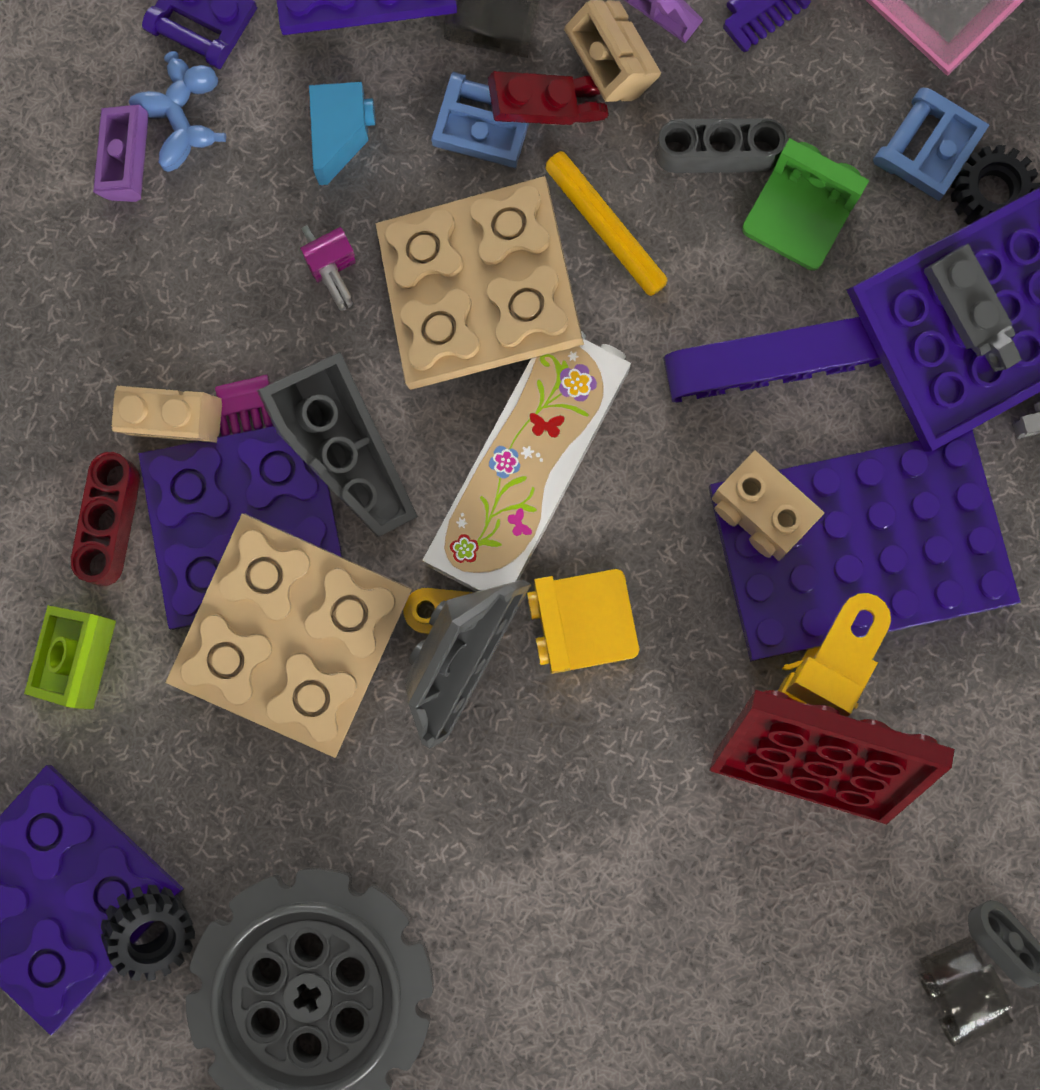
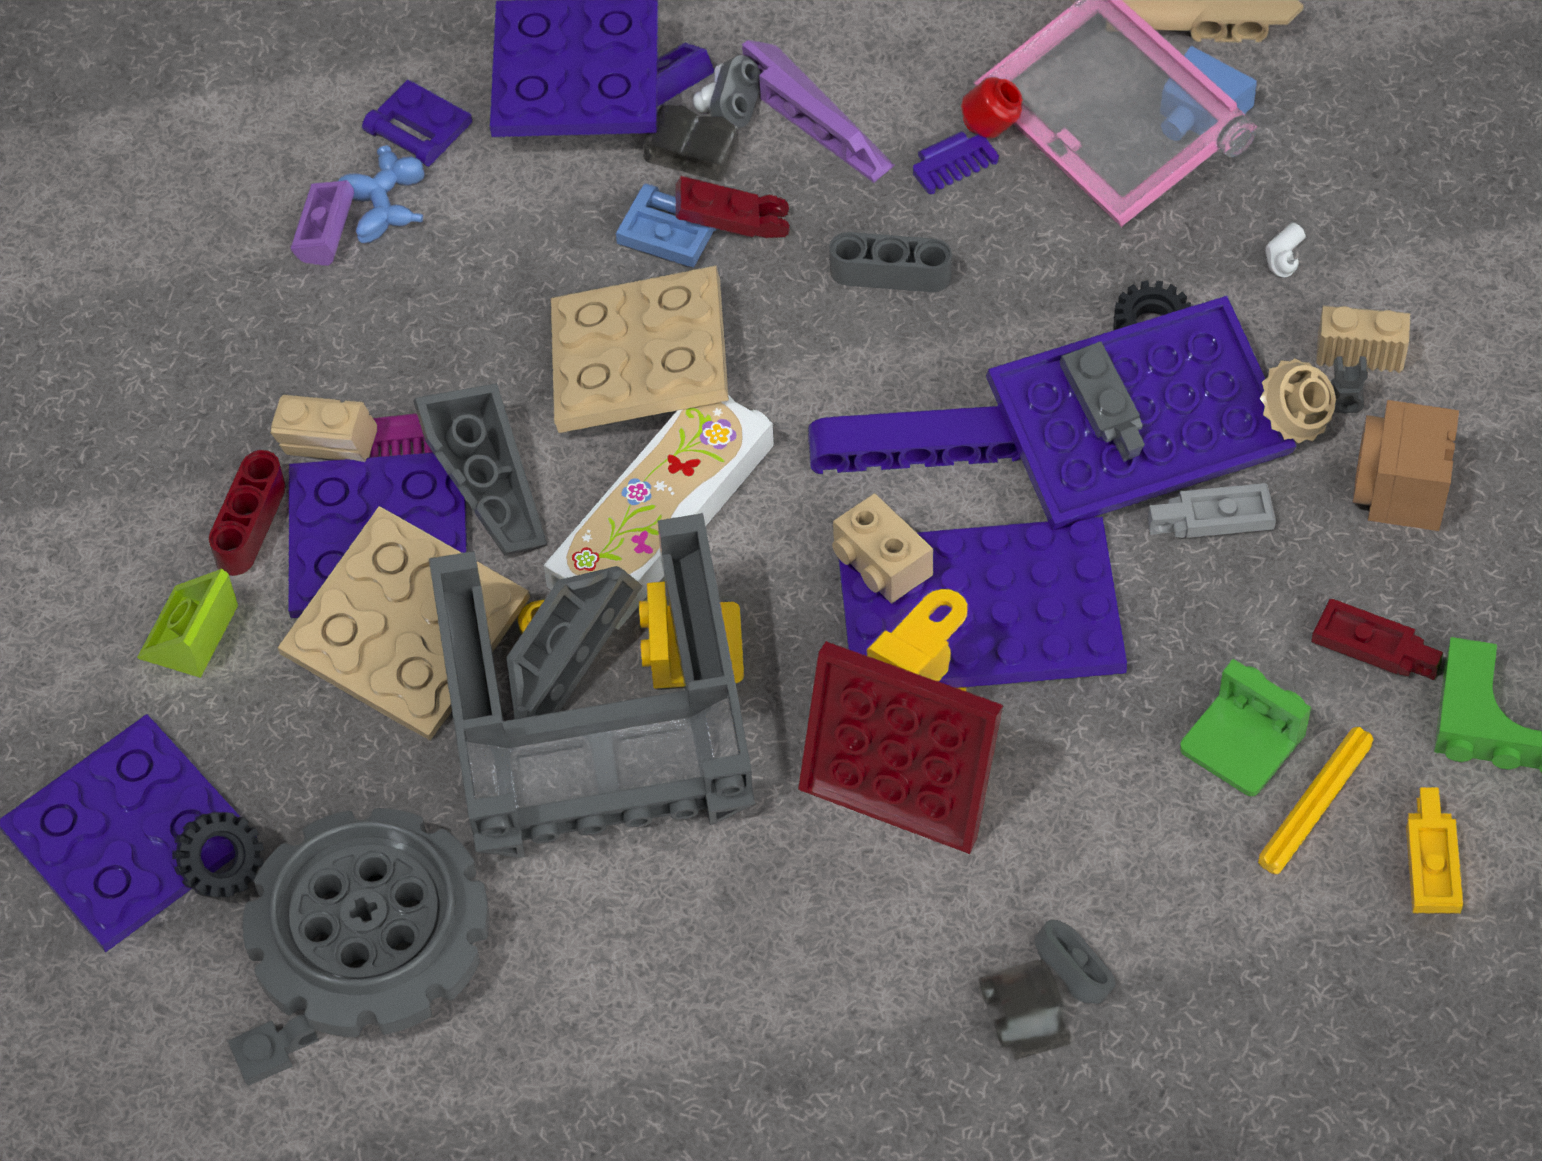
camera: 10 degrees right, 25 degrees down
(328, 257) = (501, 319): magenta piece -> none
(338, 126) = (530, 216): dark azure slope -> none
(515, 780) = (605, 759): none -> dark grey piece
(606, 223) = (772, 319): yellow axle -> none
(612, 50) = (798, 176): tan brick -> none
(804, 204) = (965, 315): bright green bracket -> none
(942, 152) = (1100, 291): medium blue plate -> none

